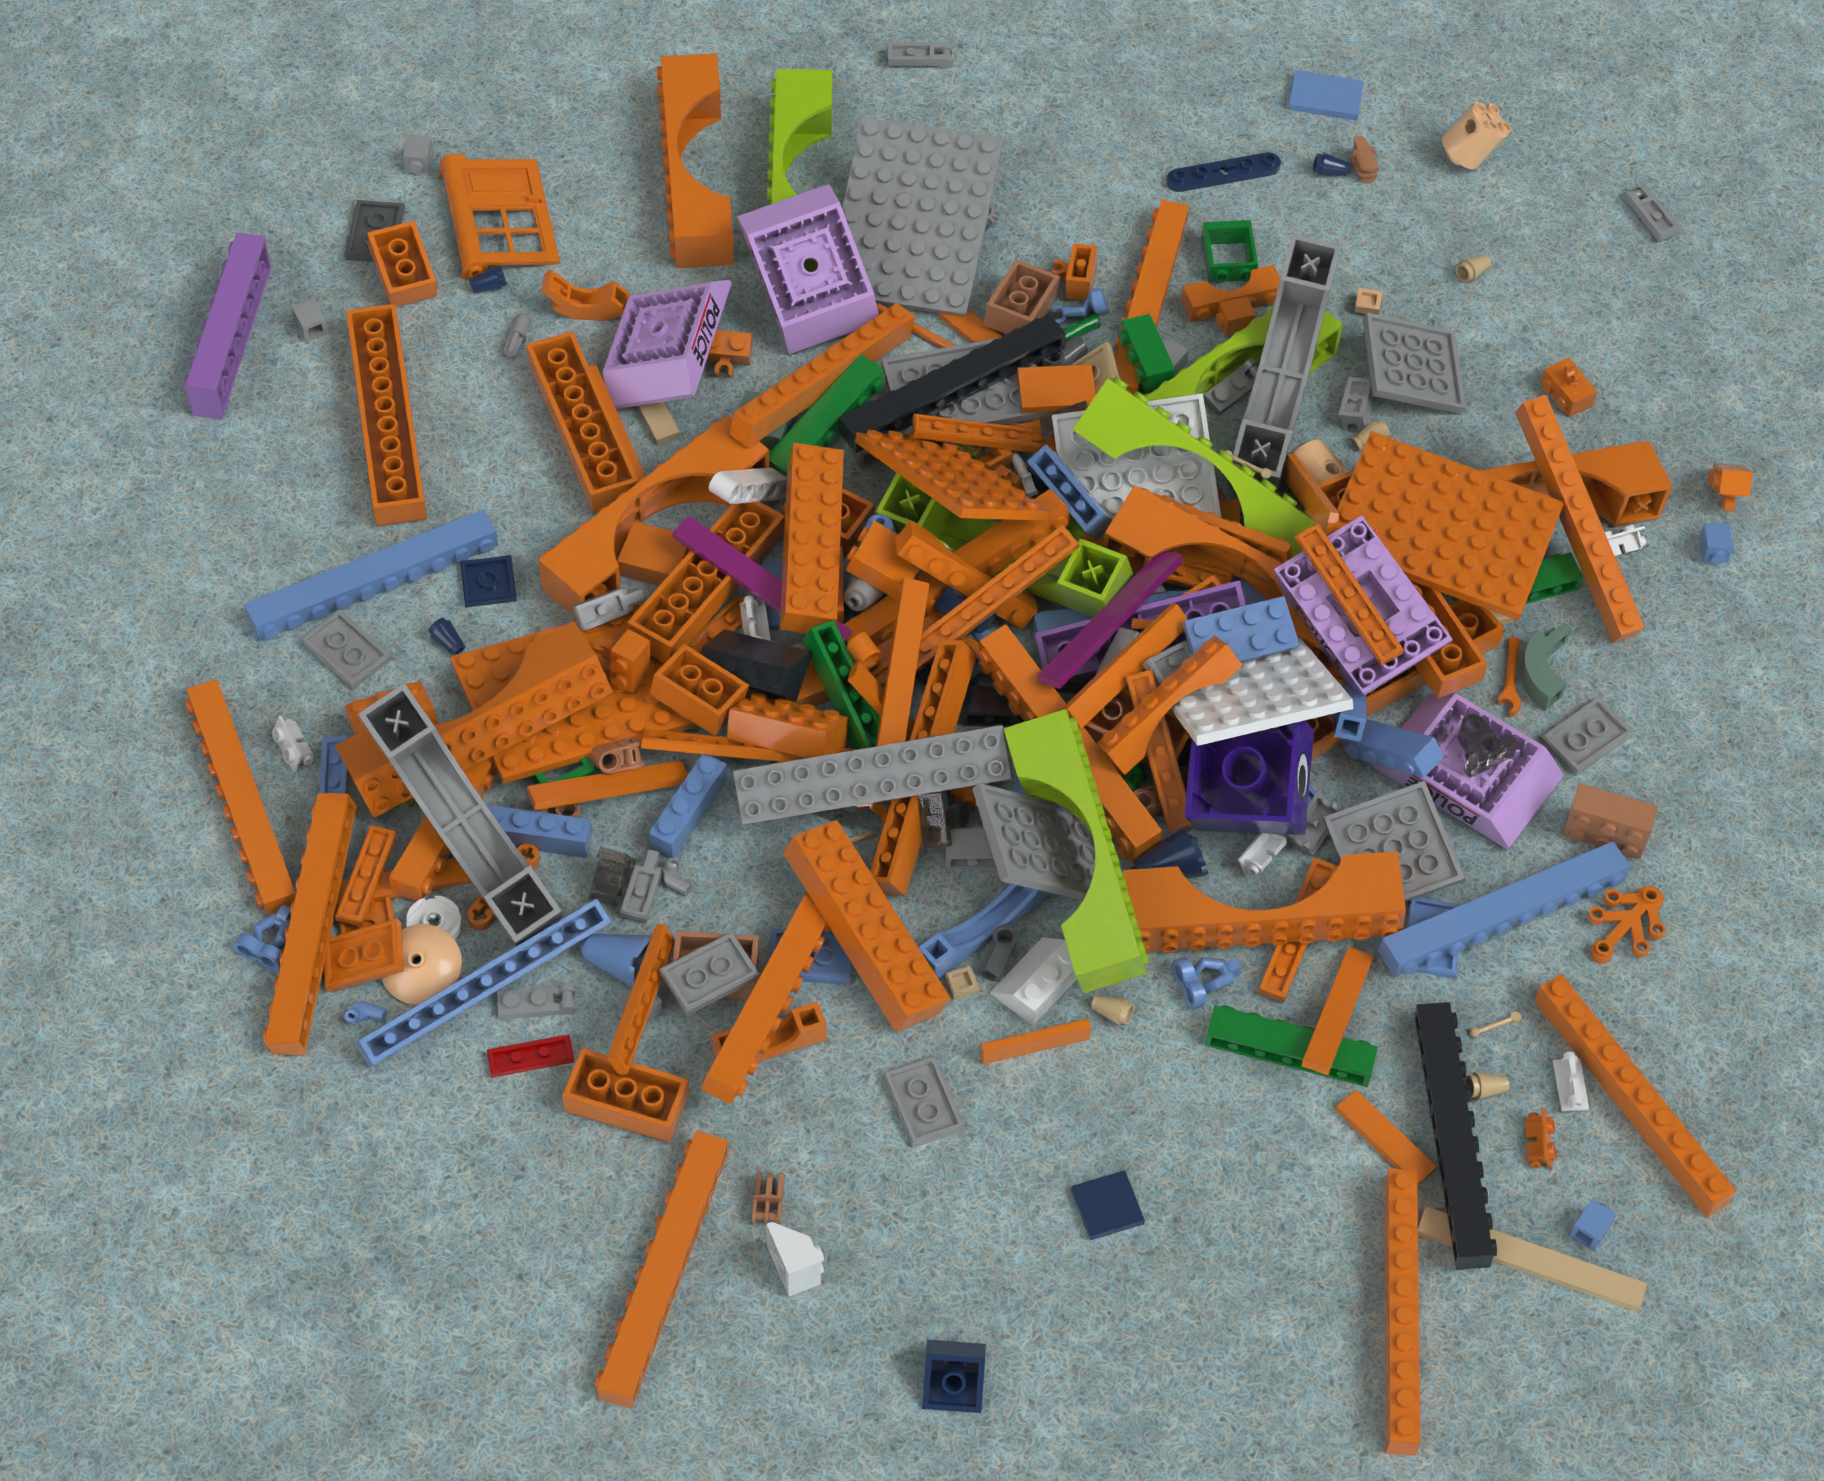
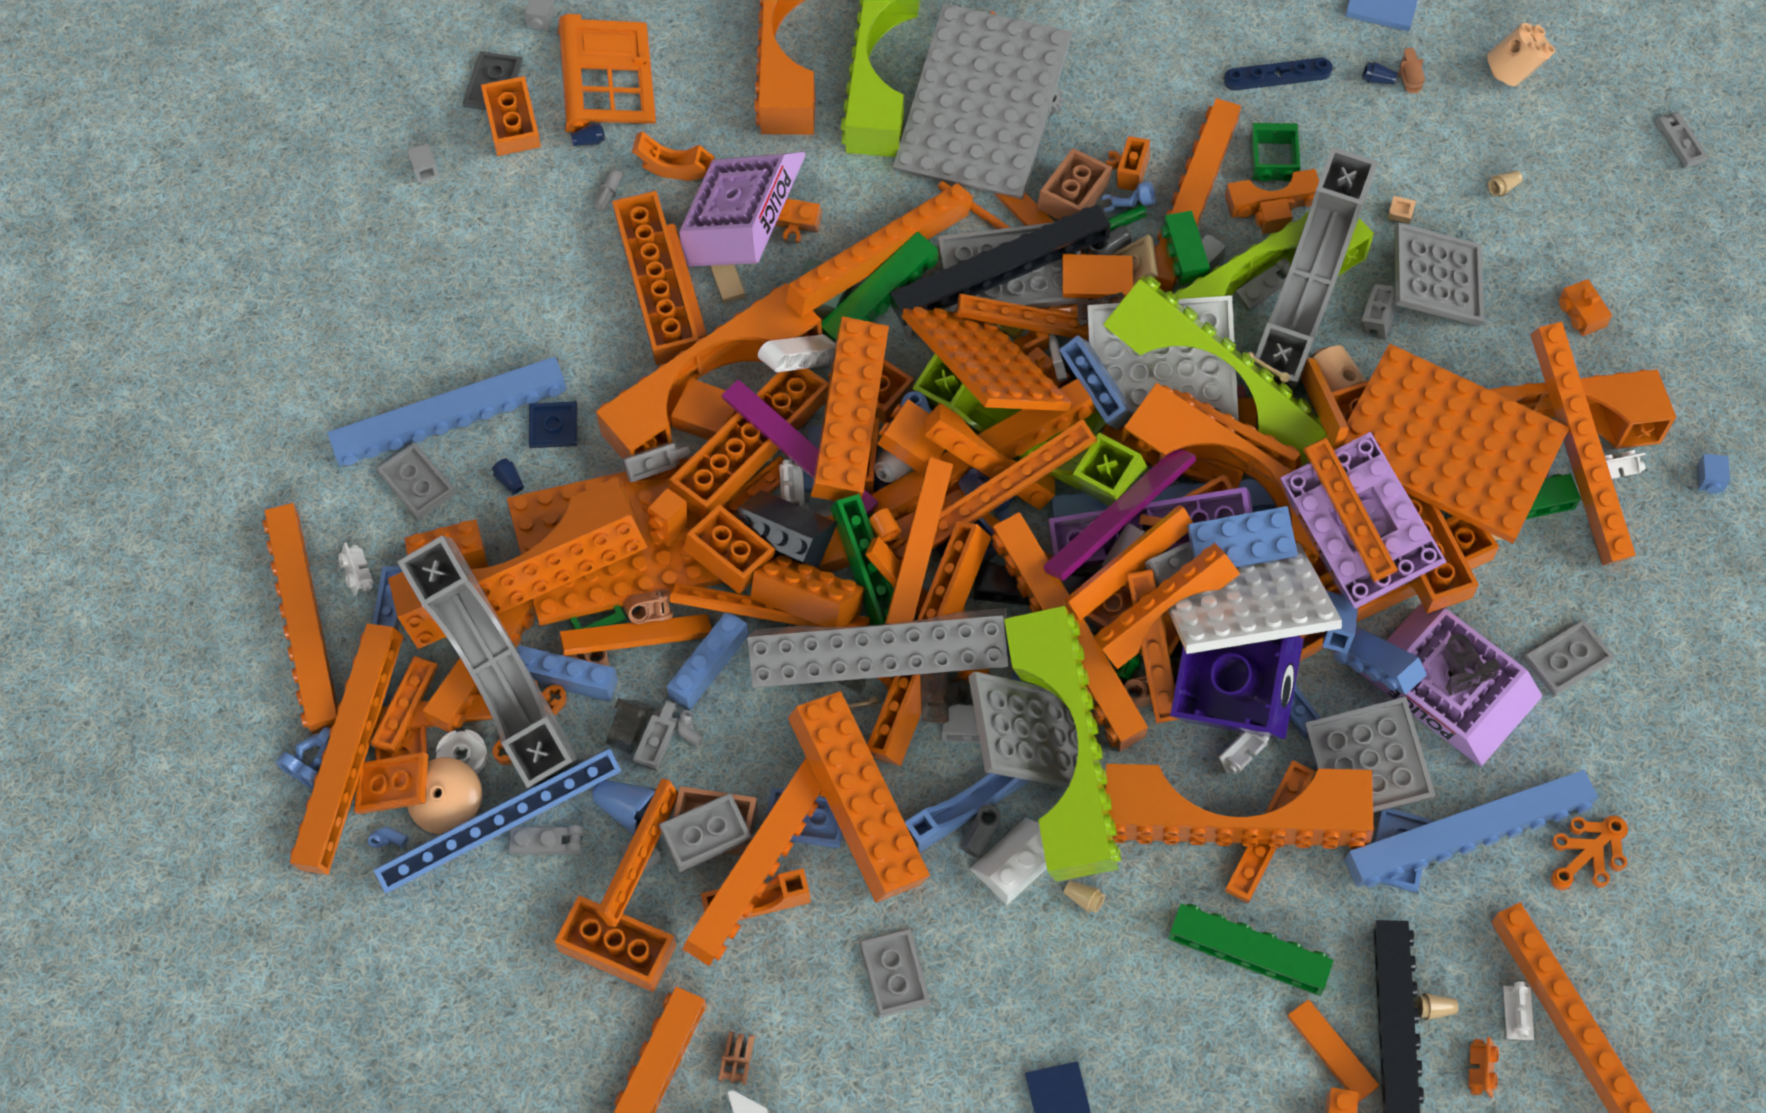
camera: 10 degrees right, 5 degrees up
(227, 326) = (347, 164): medium lavender brick -> none
(386, 415) = (479, 259): orange brick -> none
(530, 1056) = (534, 894): red tile -> none
(809, 304) = (883, 179): lavender slope -> none
(962, 982) = (944, 856): tan tile -> none
(1035, 1041) = (1006, 923): orange tile -> none
(1175, 851) = (1159, 748): dark blue cone -> none
(1193, 989) = (1158, 872): medium blue piece -> none
(1315, 827) = (1296, 731): light grey hinge -> none
(1337, 1011) = (1298, 920): orange tile -> none
(1377, 426) = (1394, 336): tan cone -> none
(1509, 694) = (1497, 609): orange piece -> none
(1515, 1017) = (1470, 938): tan hinge -> none
(1536, 675) = (1525, 592): sand green arch -> none
(1606, 817) = (1583, 747): nougat brick -> none
(1730, 482) = (1733, 414): orange brick -> none

